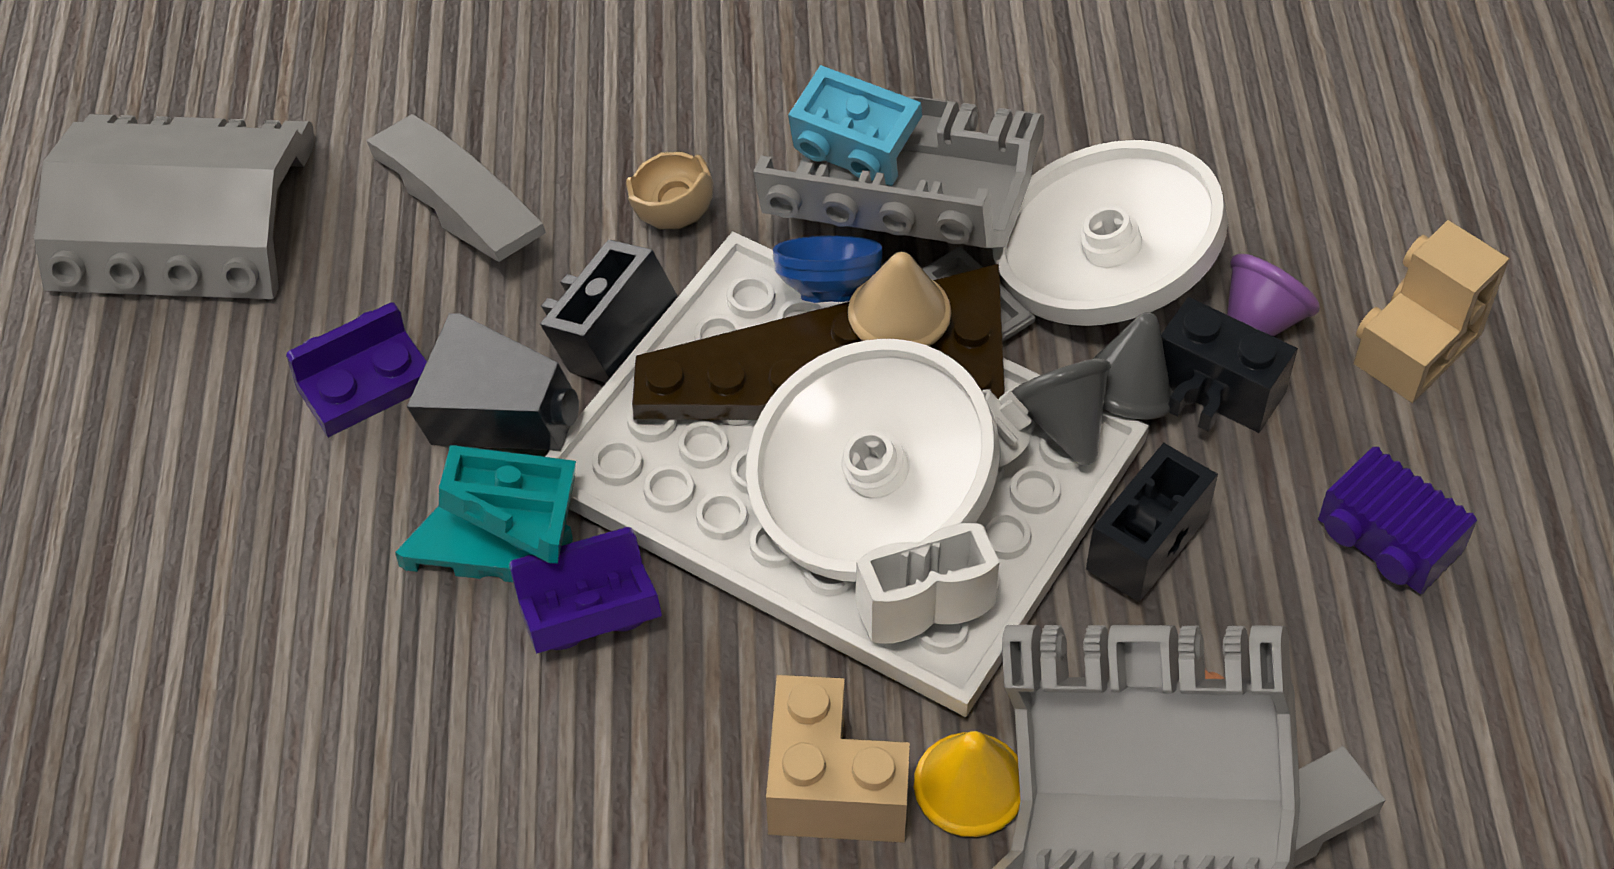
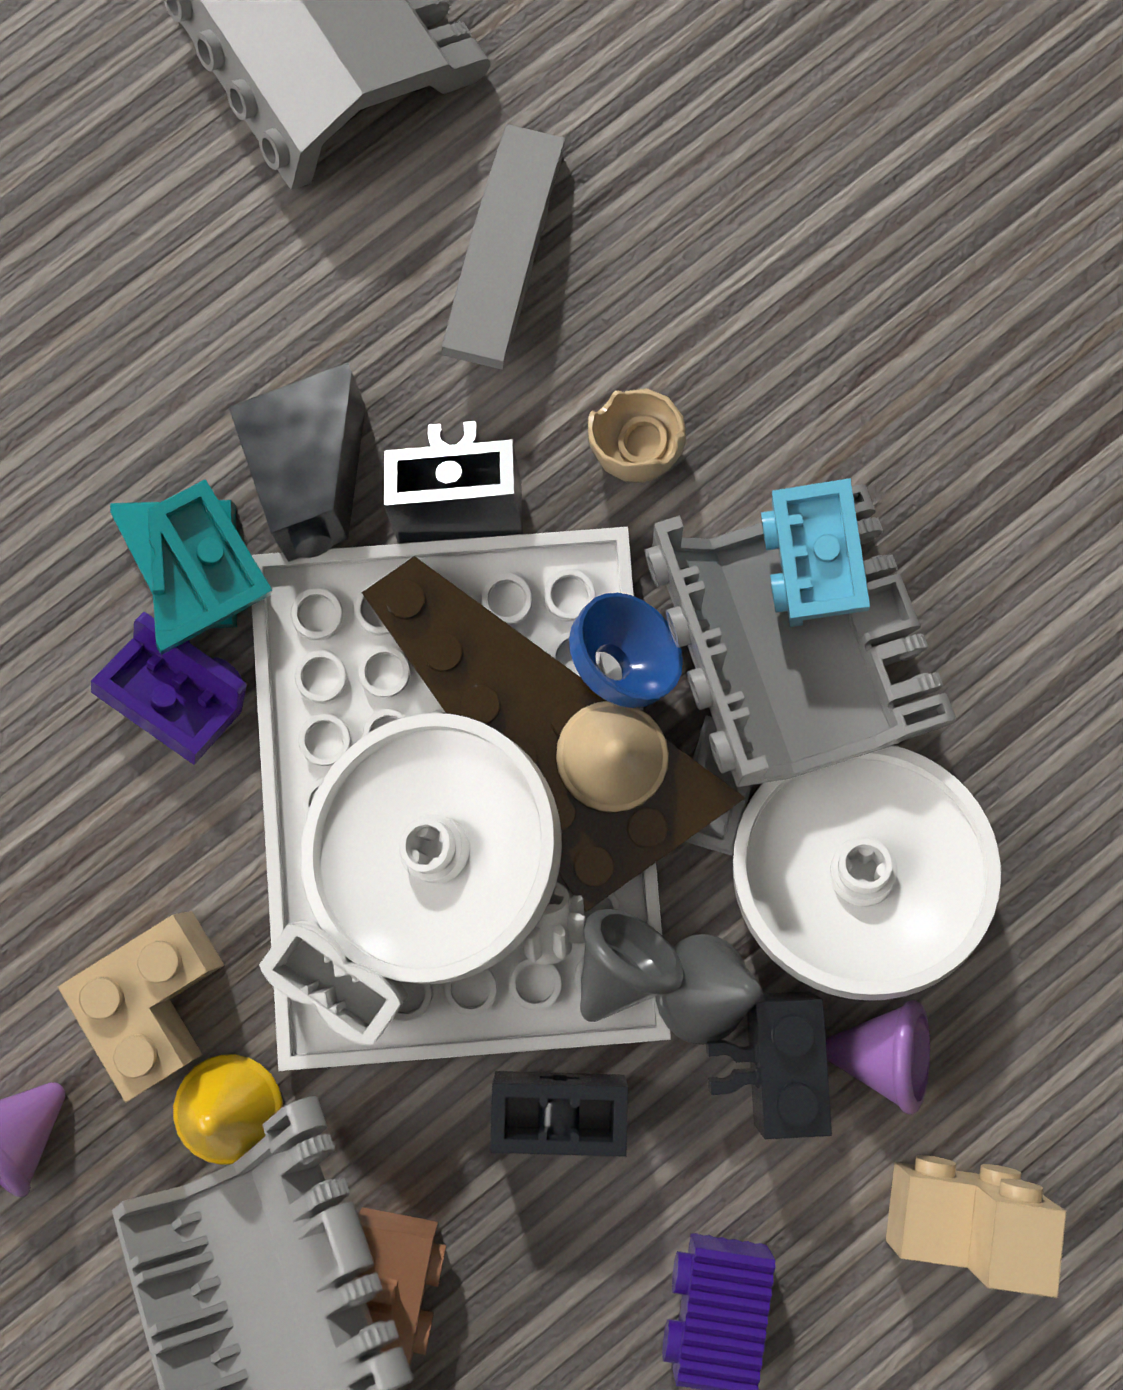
camera: 50 degrees right, 30 degrees up
(357, 369) = (262, 326): dark purple bracket -> none

